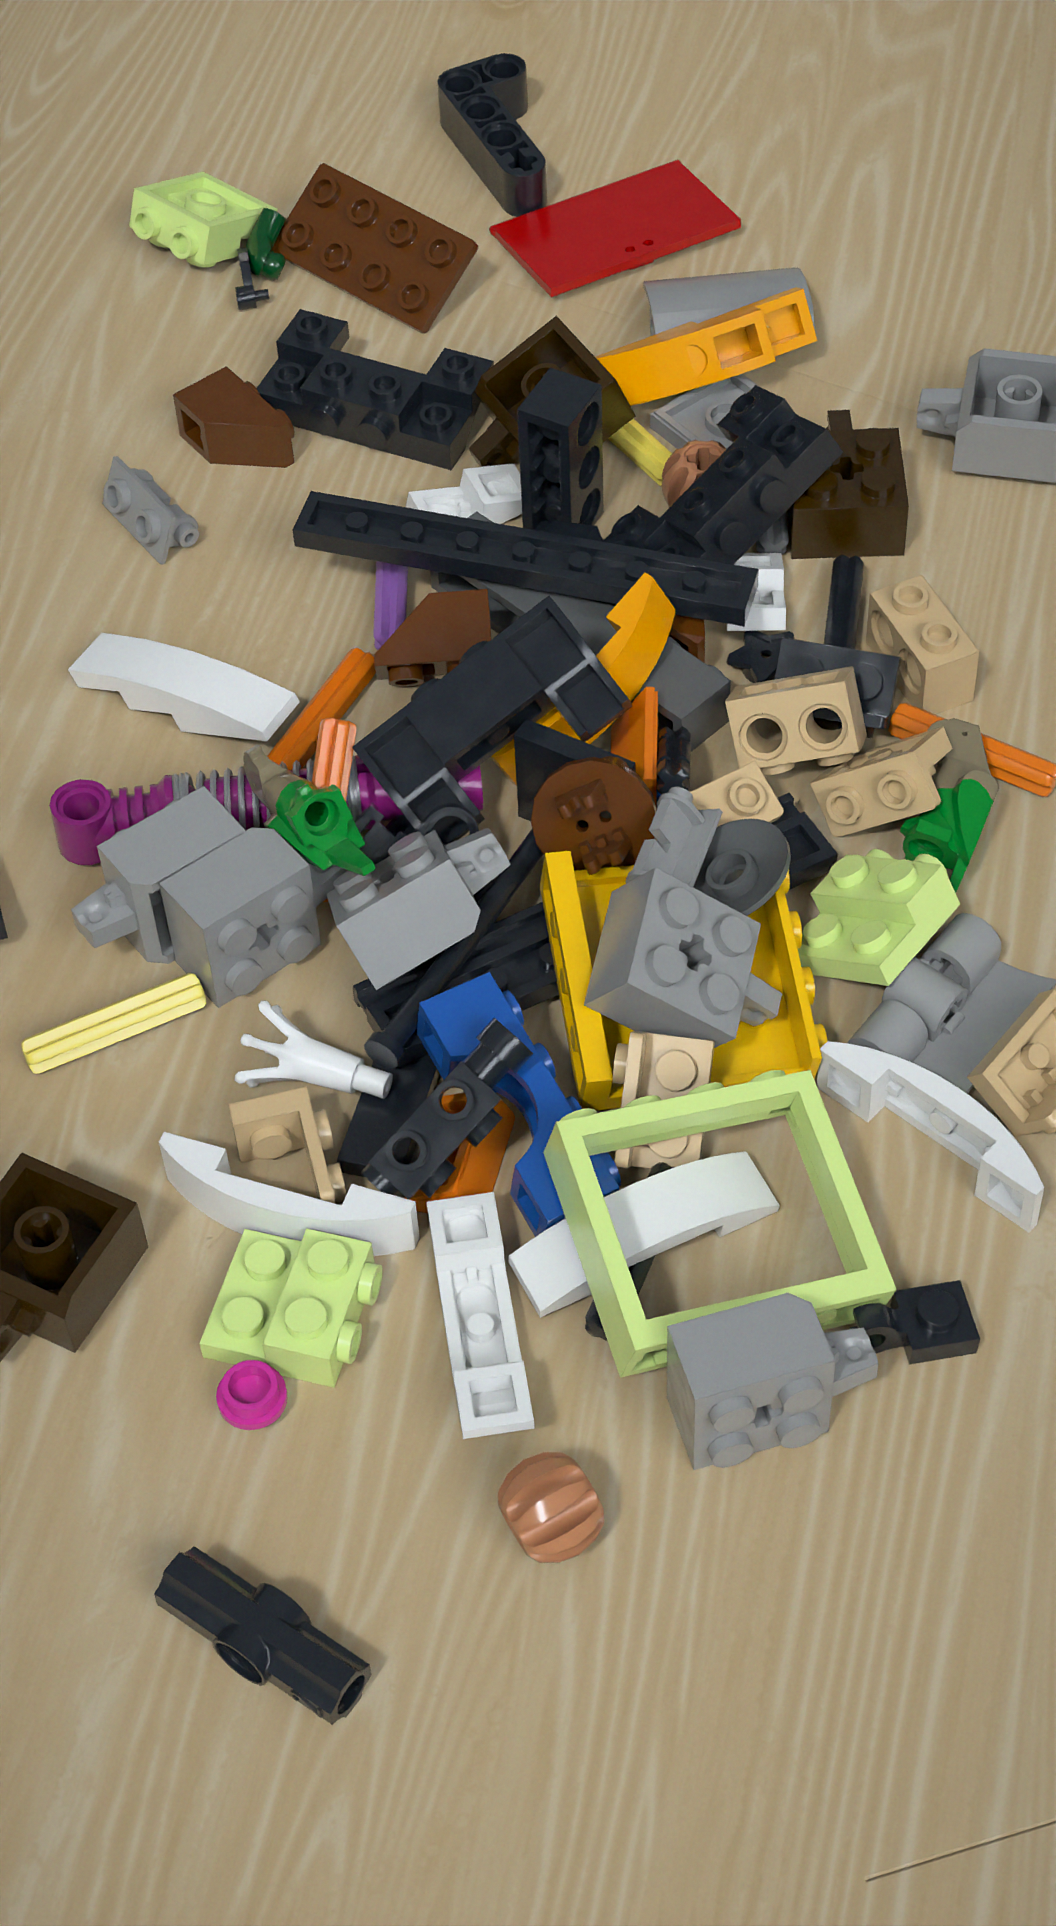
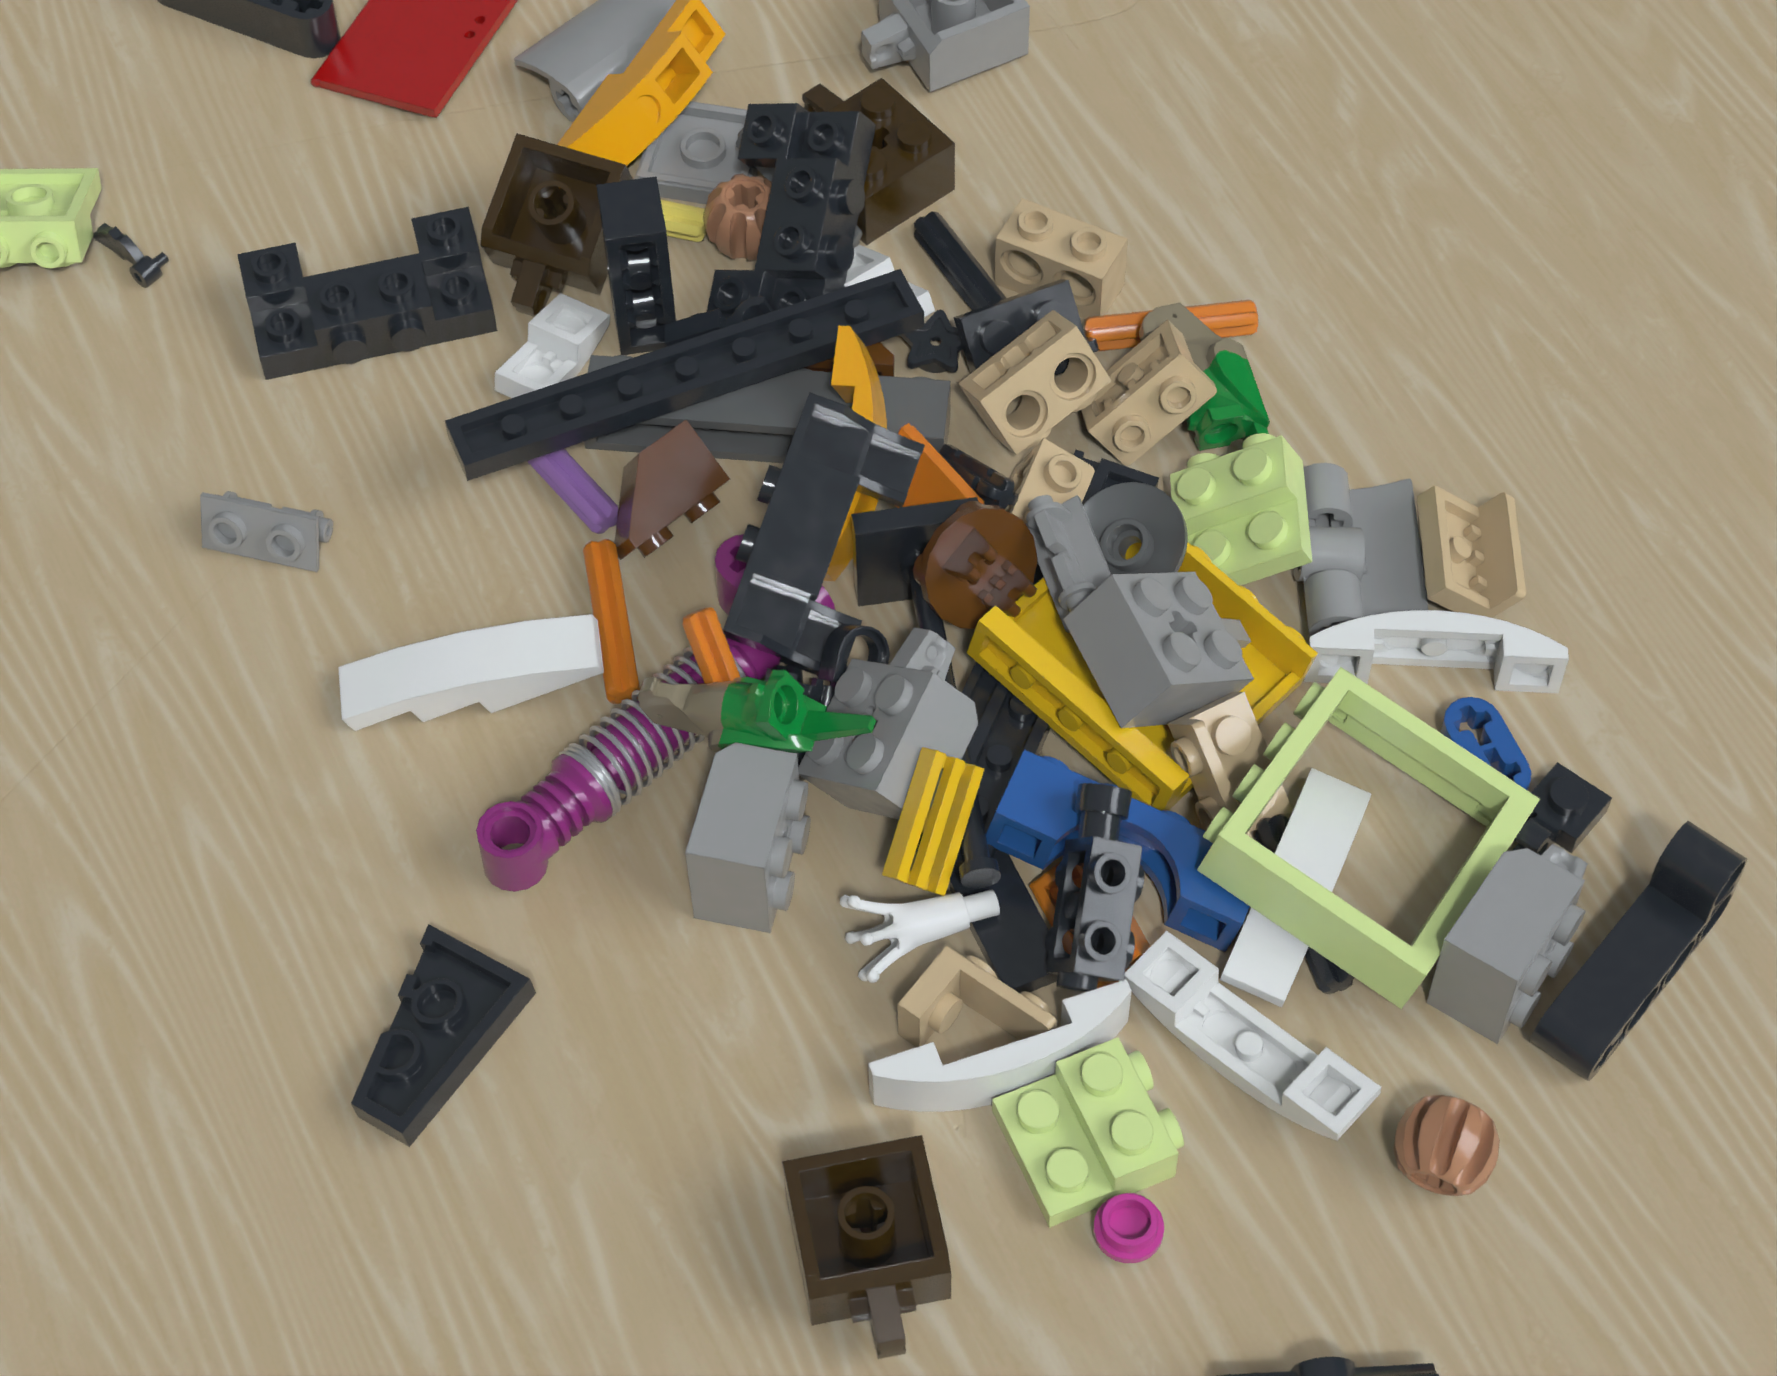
camera: 40 degrees left, 5 degrees up
(113, 1023) = (703, 1005): light yellow axle -> none
(142, 858) = (646, 844): light grey hinge -> none
(233, 423) = (267, 398): reddish brown slope -> none
(261, 242) = (115, 212): dark green arm -> none
(374, 248) = (233, 157): reddish brown bracket -> none
(384, 1009) = (941, 824): none -> yellow tile
(871, 1477) = (1641, 951): none -> black beam
(918, 1239) = (1496, 741): none -> blue beam

